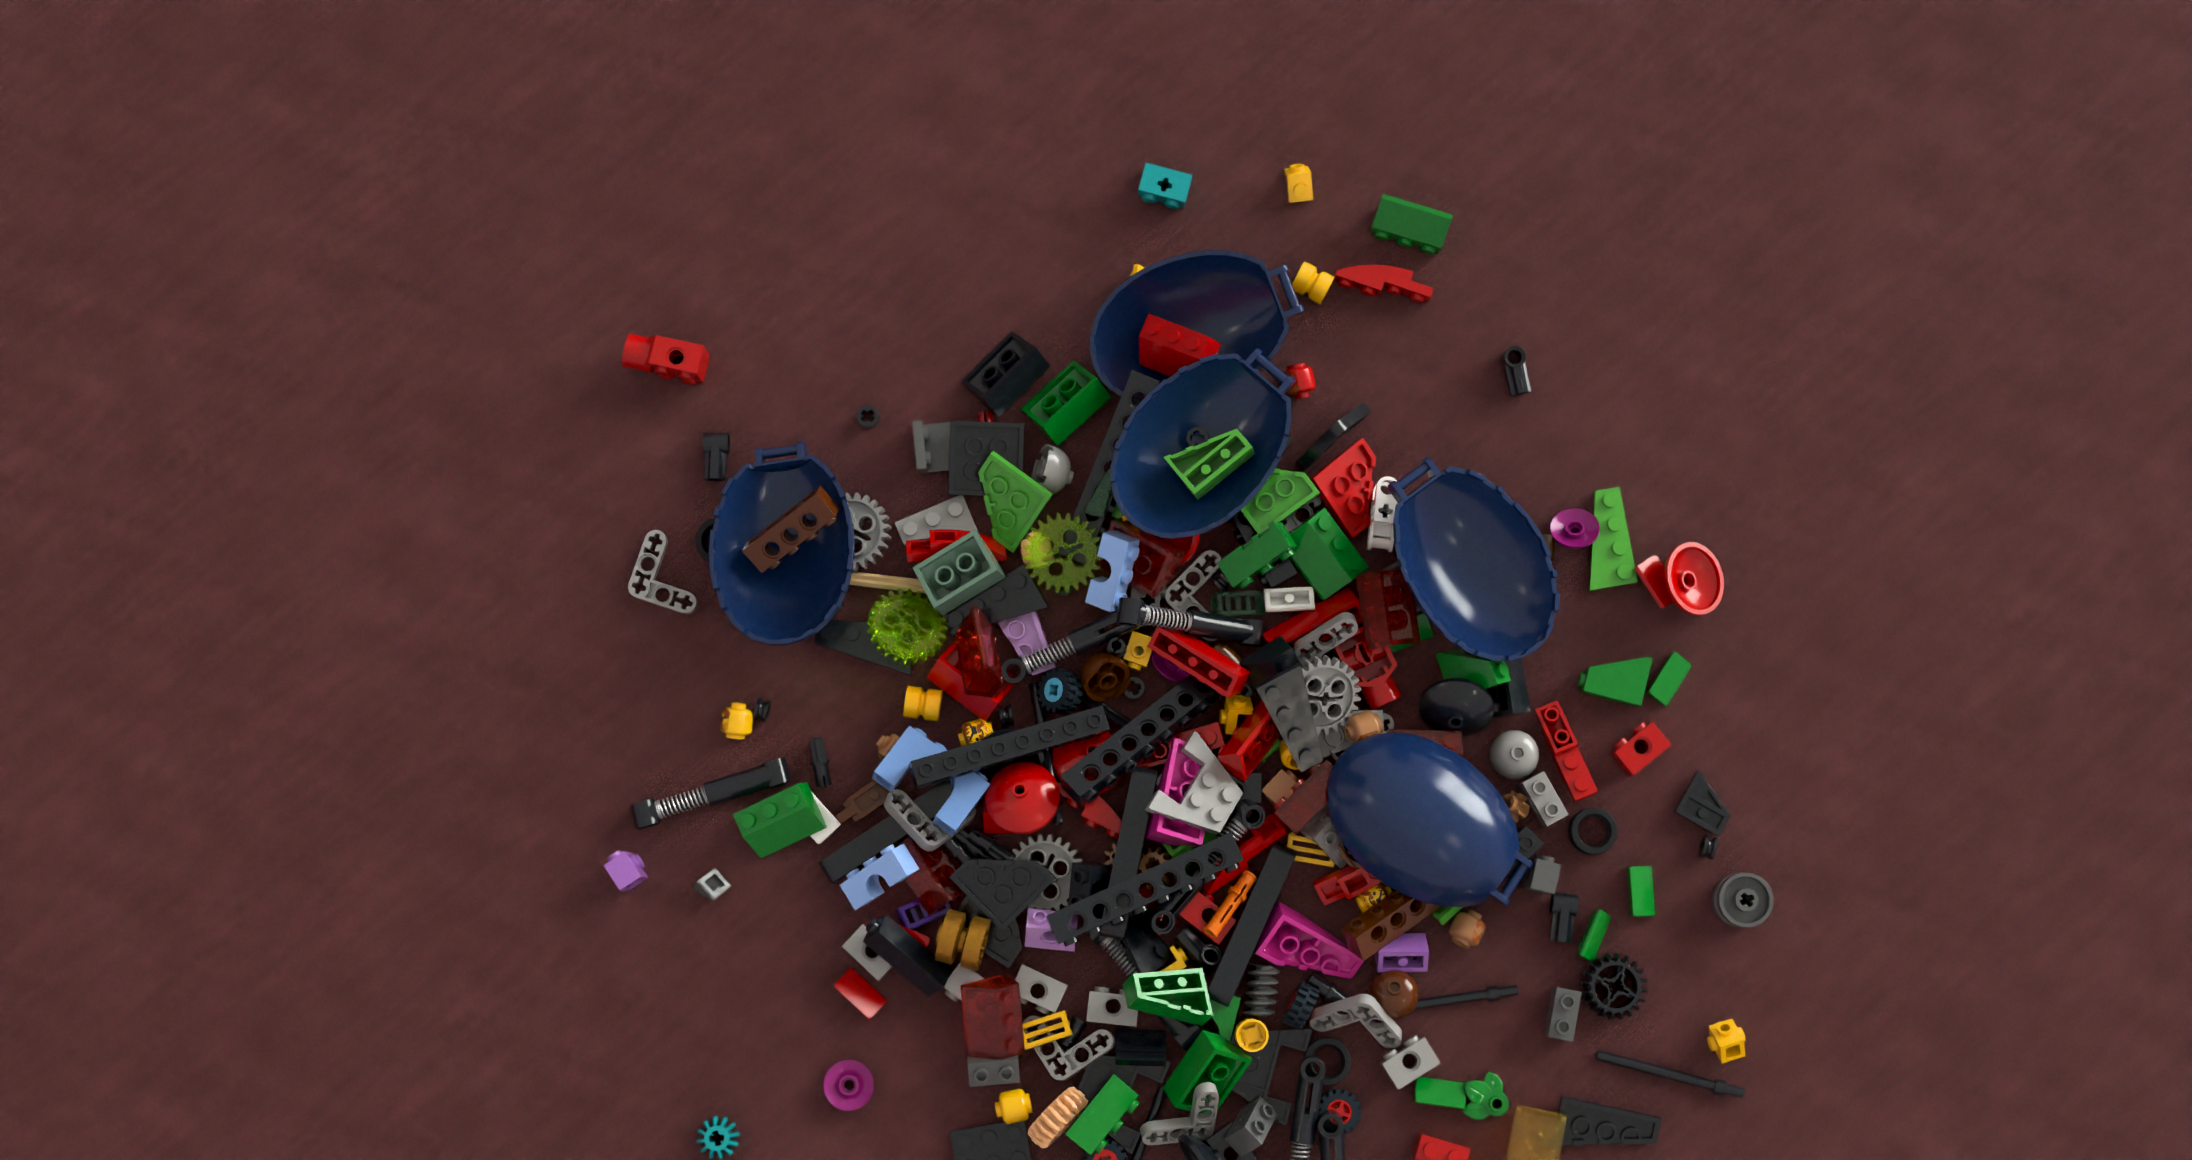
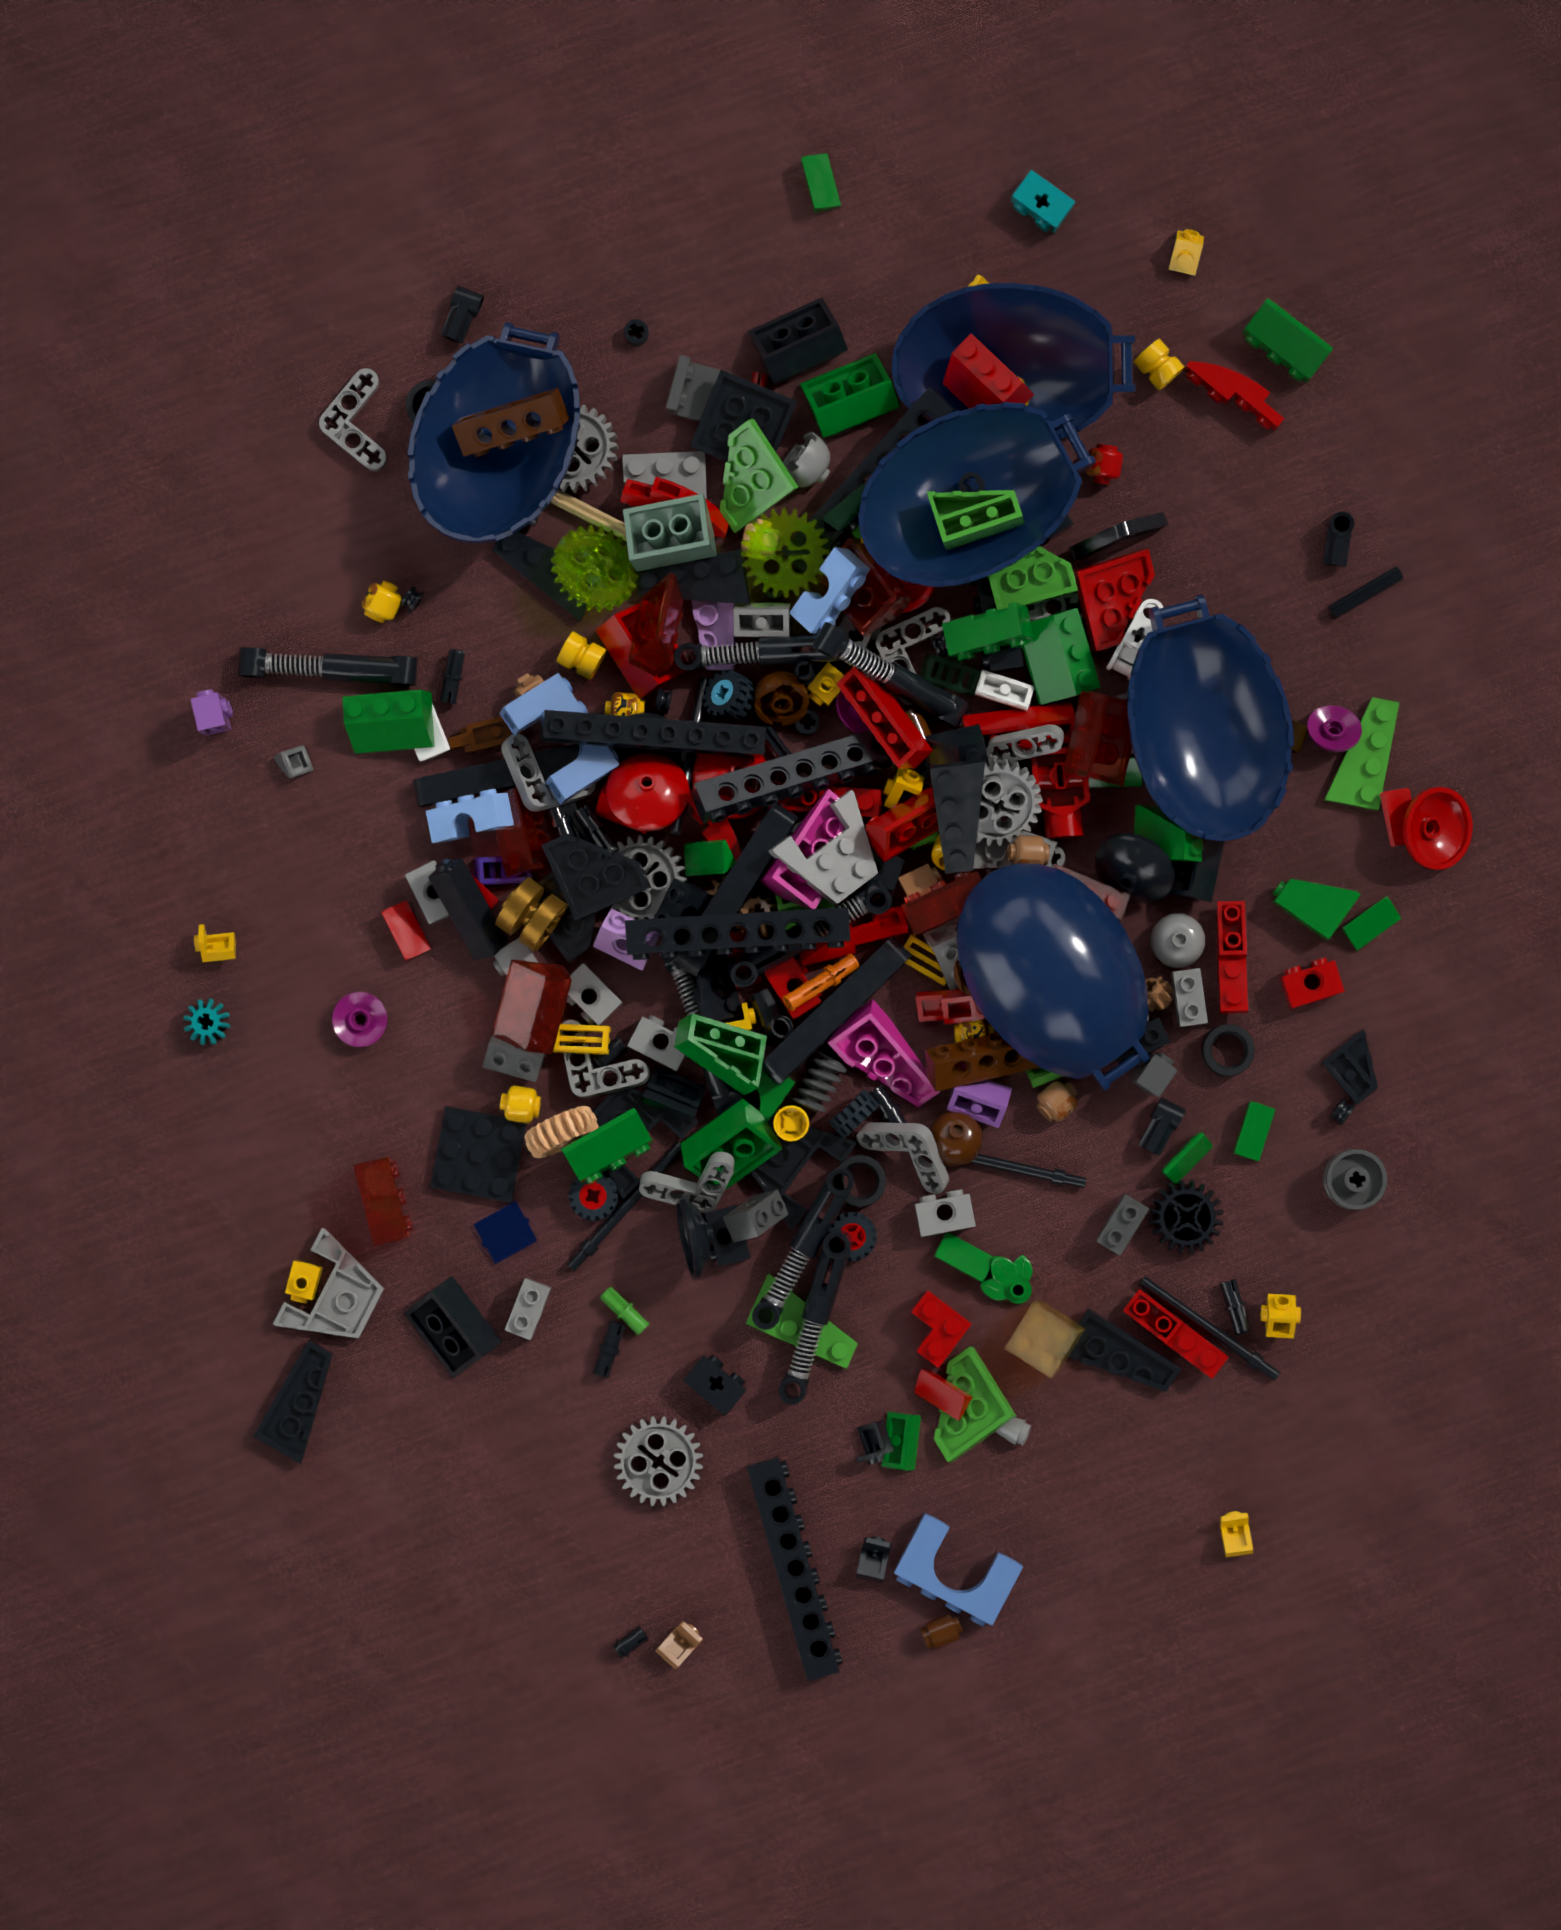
camera: 25 degrees right, 5 degrees up
(660, 356) = (442, 186): red brick -> none
(701, 1069) = (215, 946): none -> yellow bracket
(974, 237) = (820, 182): none -> green slope
(1064, 616) = (762, 620): none -> light grey brick
(1094, 834) = (707, 858): none -> green slope
(1555, 406) = (1365, 592): none -> black axle
(1645, 1090) = (1176, 1334): none -> red slope
(1684, 1047) = (1235, 1307): none -> black axle

